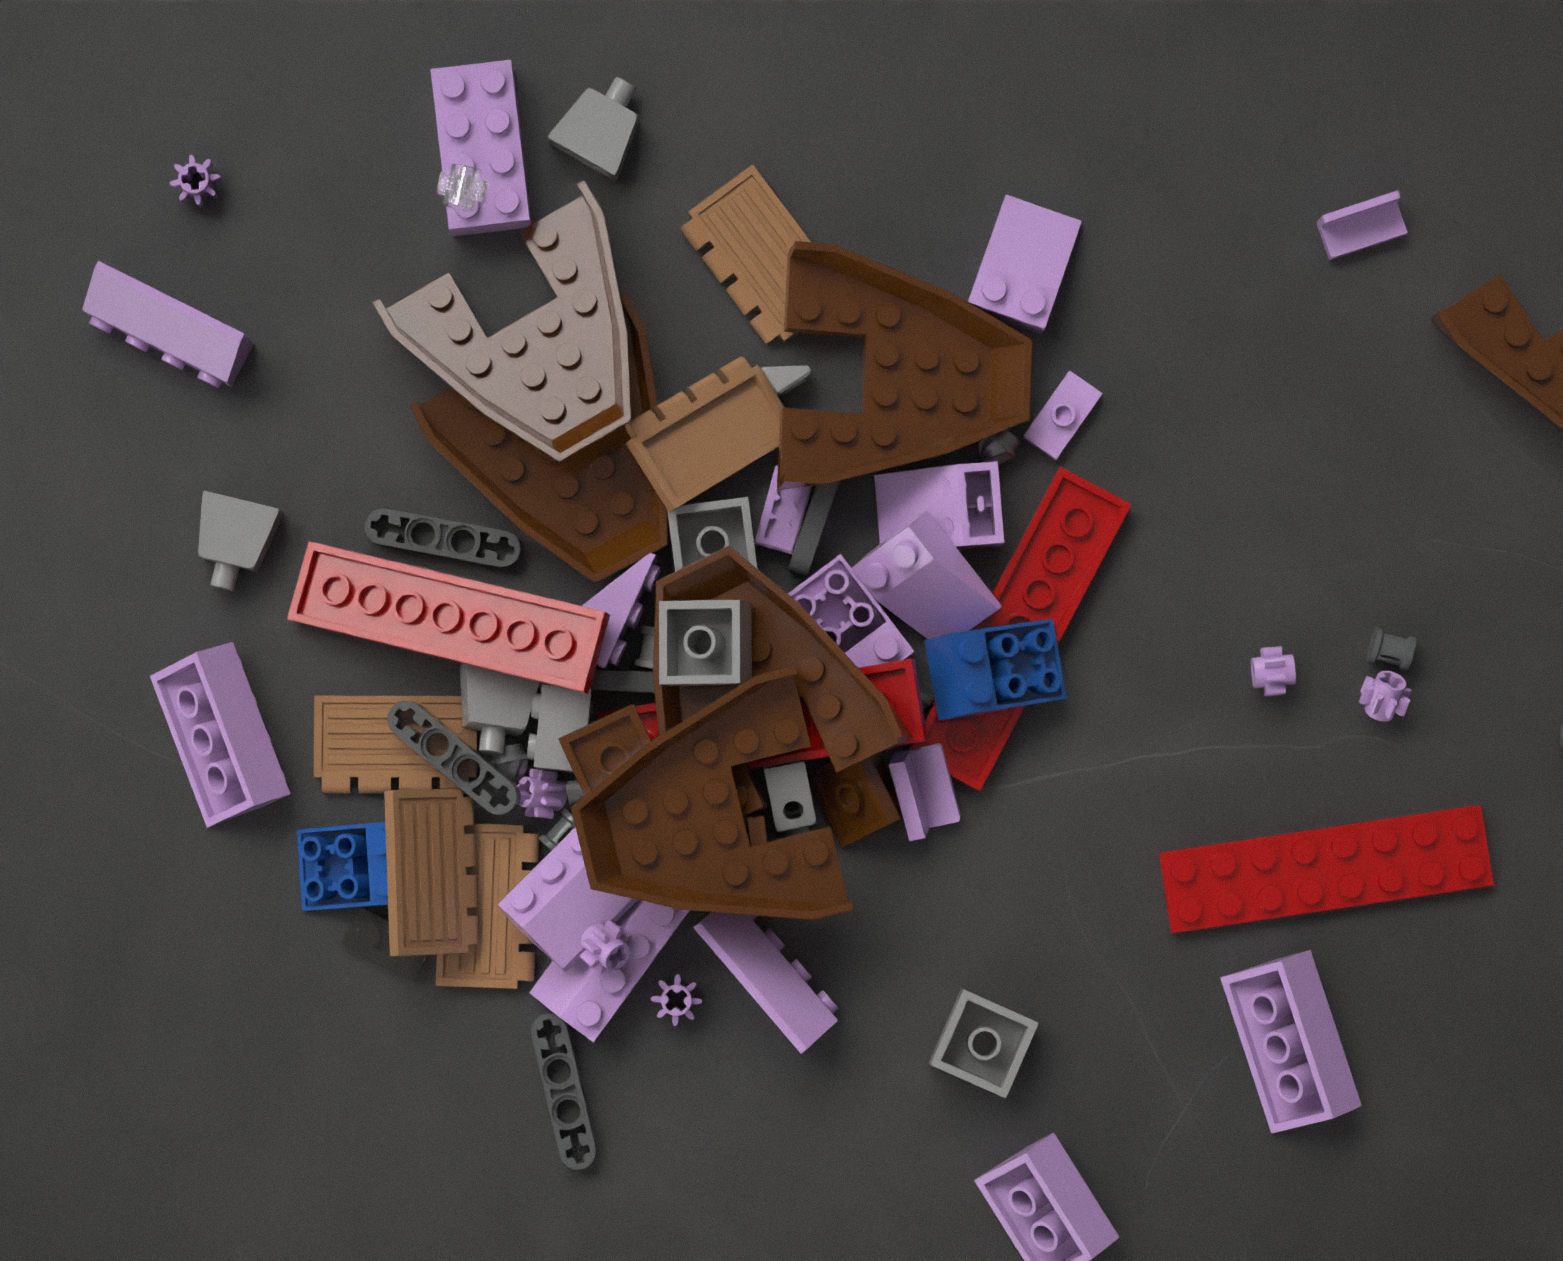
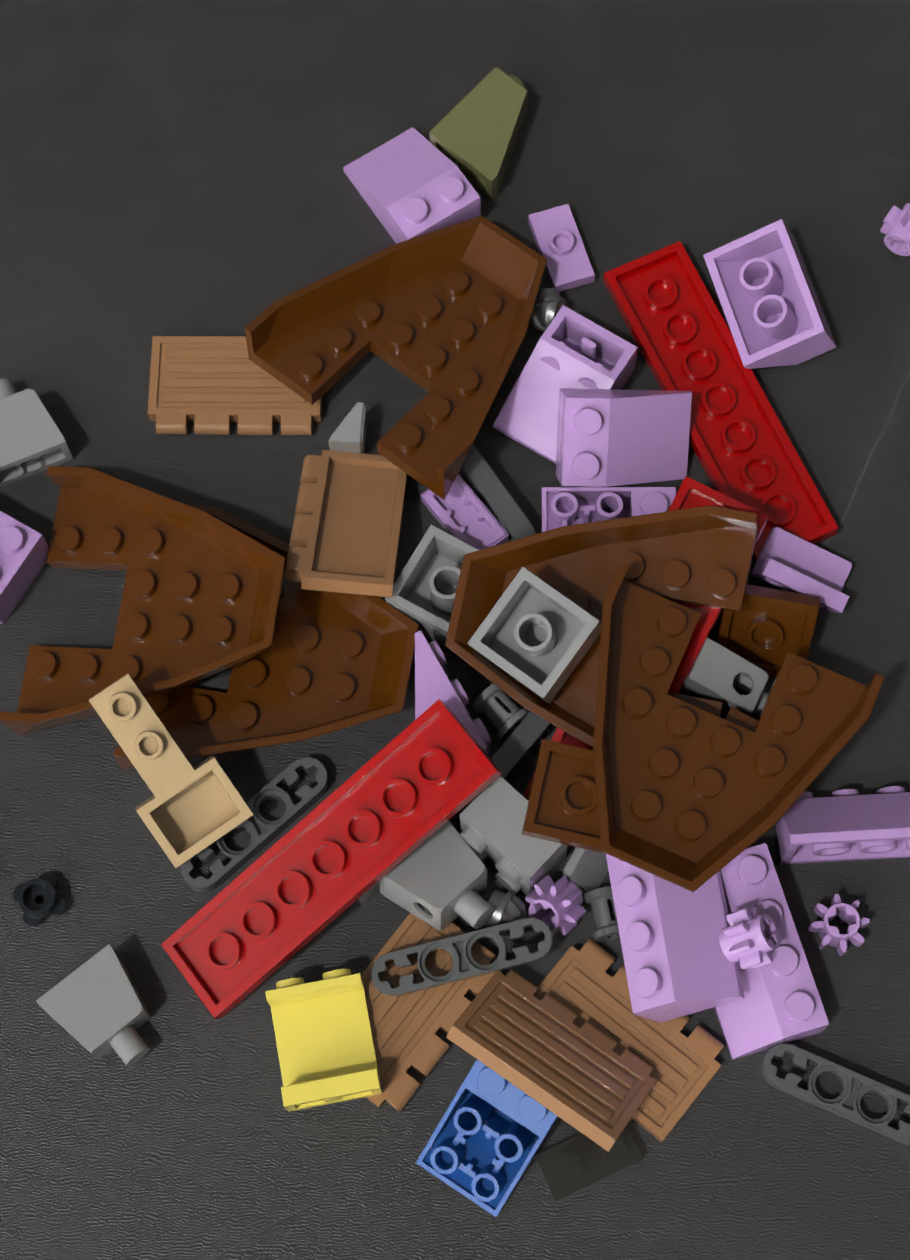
camera: 45 degrees left, 15 degrees down
(219, 734) = (270, 1165): lavender slope -> none
(273, 419) = (26, 896): none -> black plate
(326, 707) = (324, 1040): none -> light yellow panel
(413, 484) = (188, 803): none -> tan plate
(995, 669) = (740, 435): blue slope -> none
(1114, 282) = (484, 131): none -> olive slope
(1130, 608) = (769, 299): none -> lavender slope

